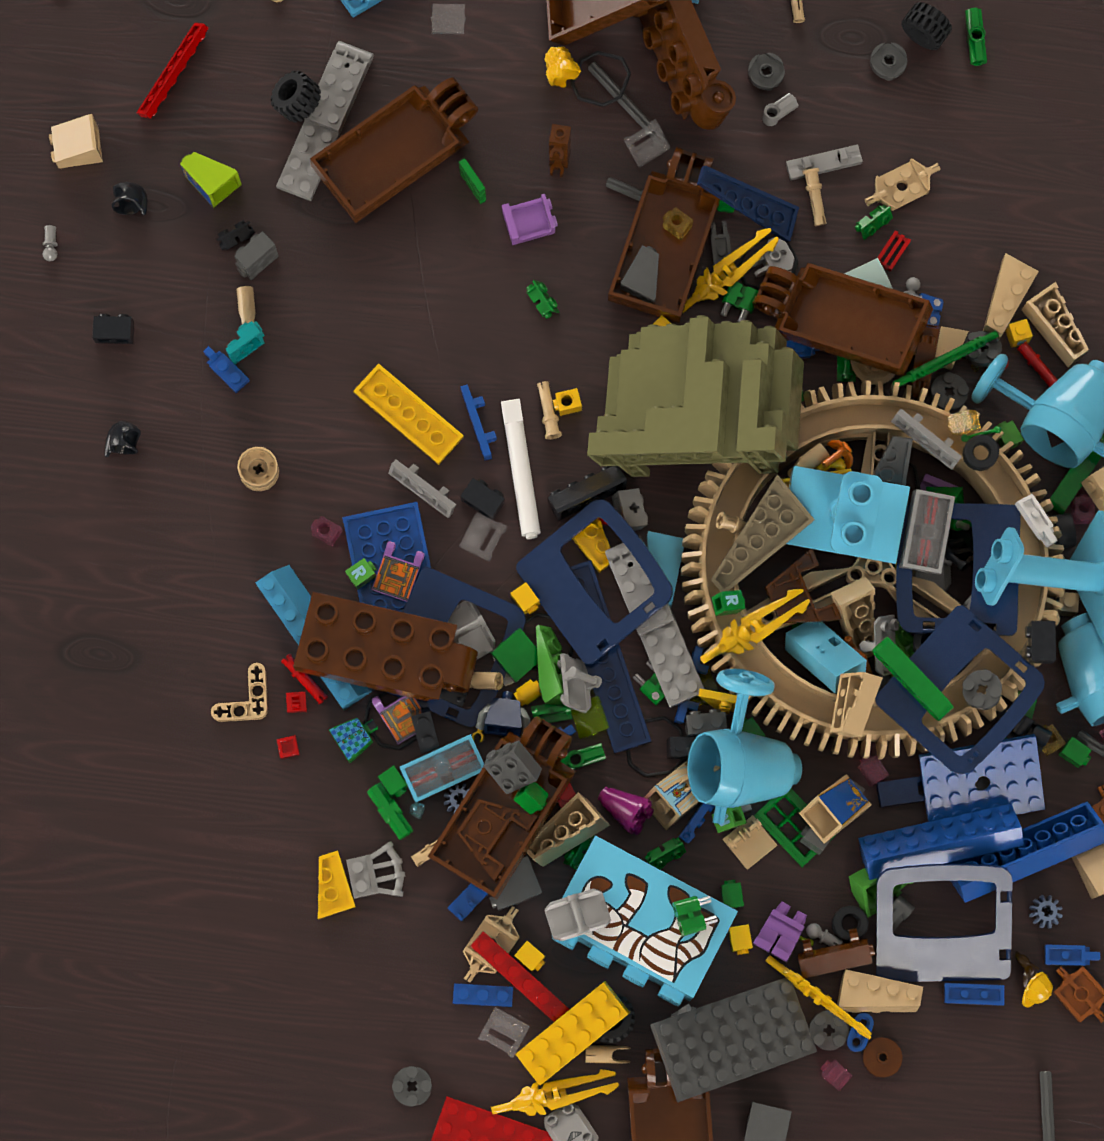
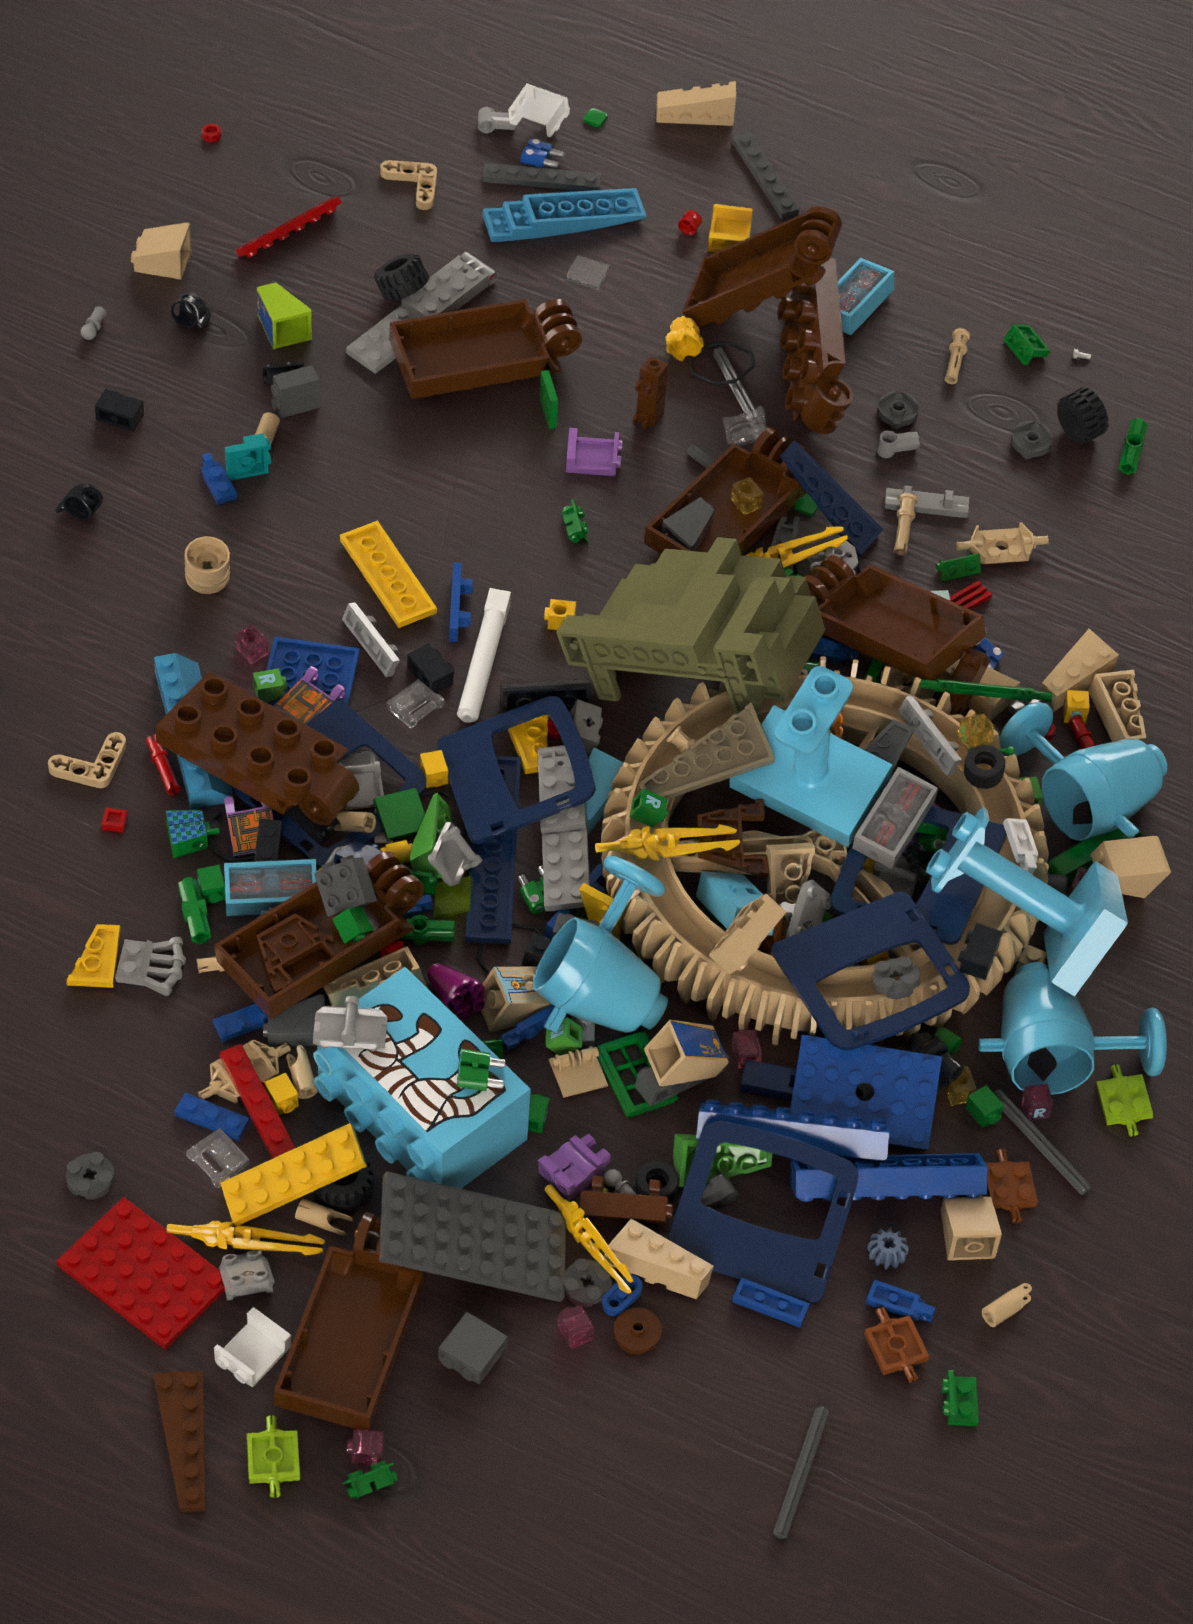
camera: 15 degrees right, 25 degrees down
(296, 702) = (144, 783): red tile -> none
(417, 810) = (226, 920): clear light blue hinge -> none
(536, 929) = (302, 1074): none -> tan piece
(550, 418) = (535, 623): tan pin -> none
(740, 939) = (525, 1156): yellow brick -> none
(912, 678) = (821, 936): green beam -> none
(1035, 982) = (844, 1315): yellow piece -> none

